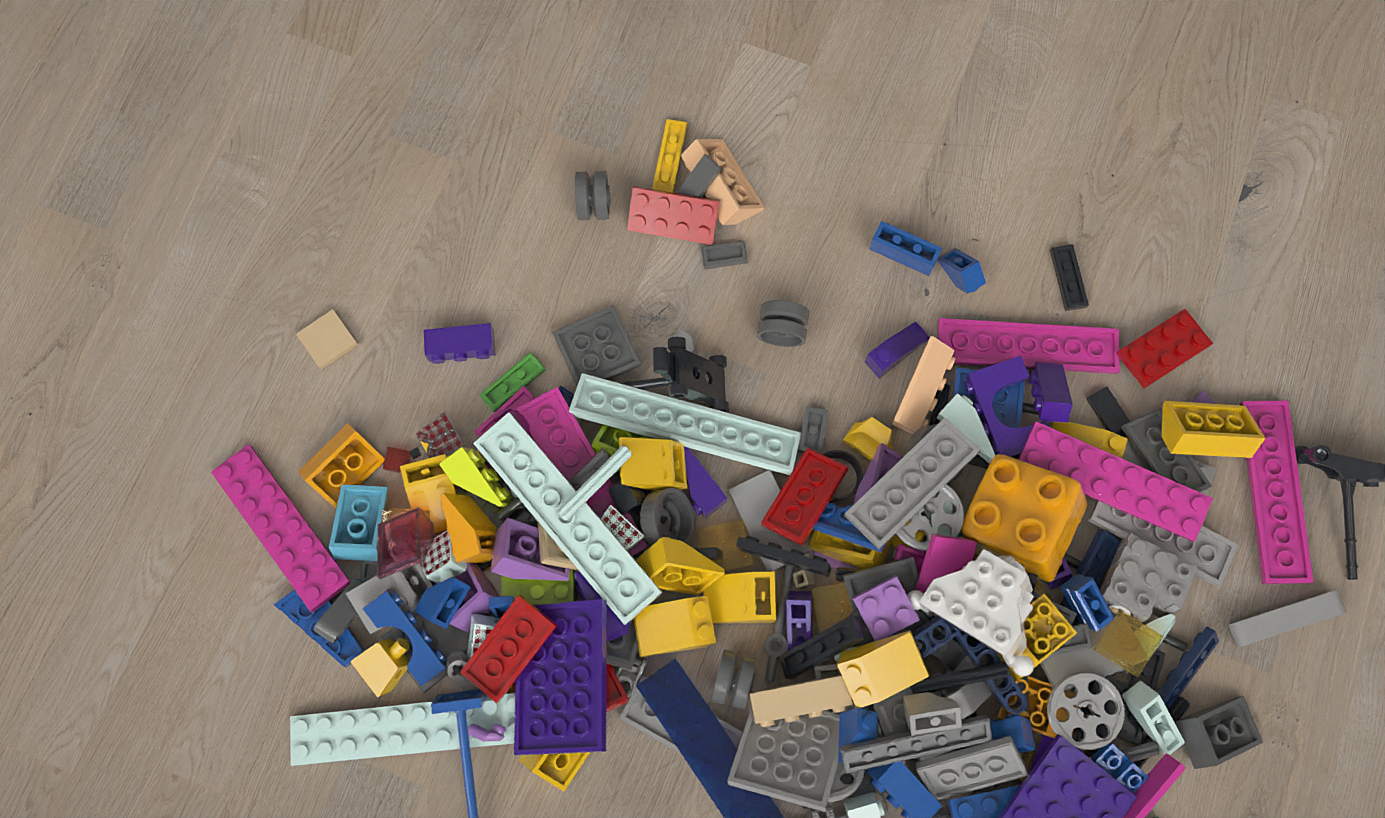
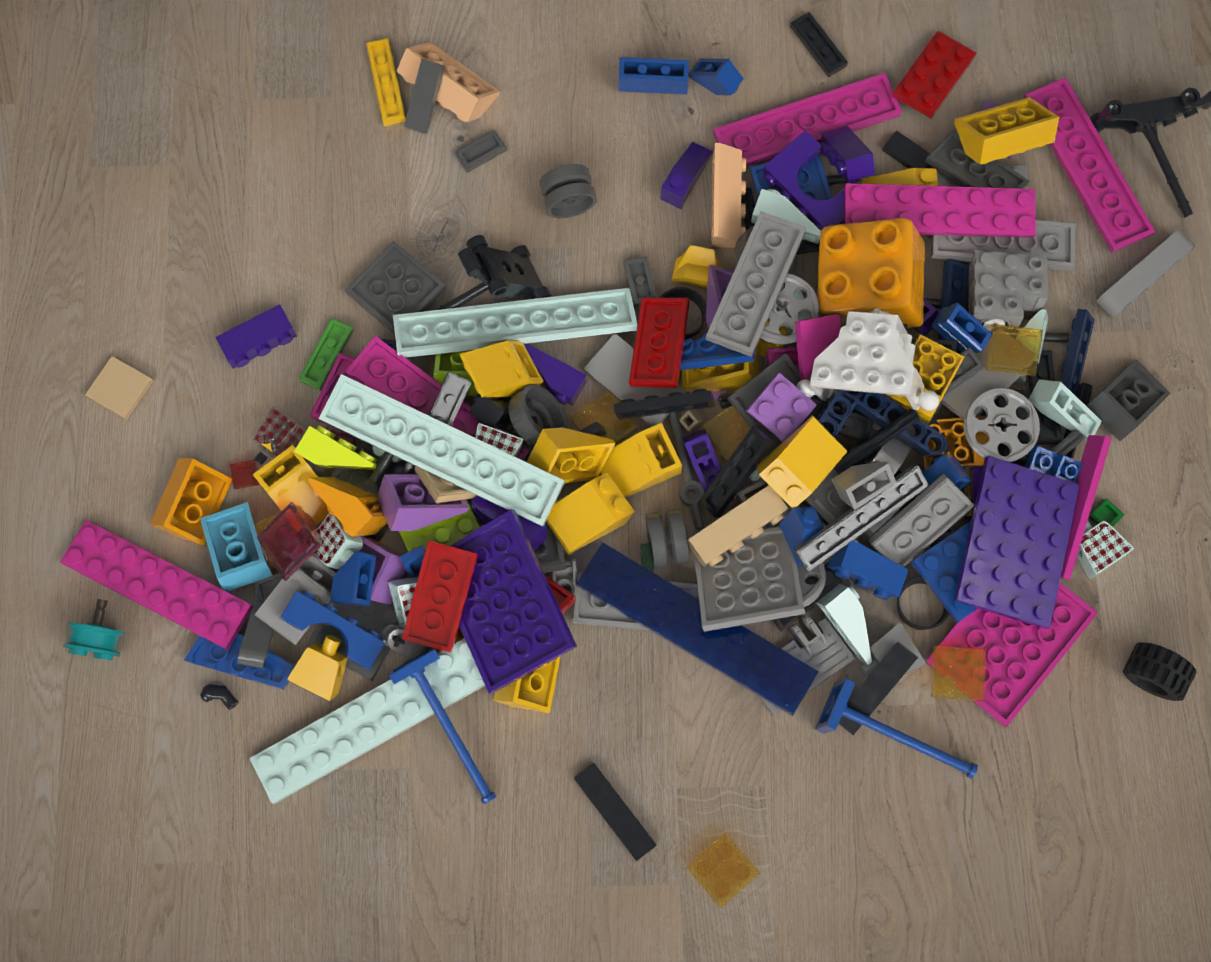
camera: 25 degrees left, 0 degrees up
(206, 552) = (94, 636): none -> teal wheel
(290, 645) = (220, 692): none -> black arm
(487, 735) = (451, 687): medium lavender arm -> none
(592, 195) = (329, 141): dark grey wheel -> none
(594, 482) = (455, 405): light aqua axle -> none
(673, 215) = (414, 131): plate -> none
(709, 688) = (646, 556): none -> clear green tile

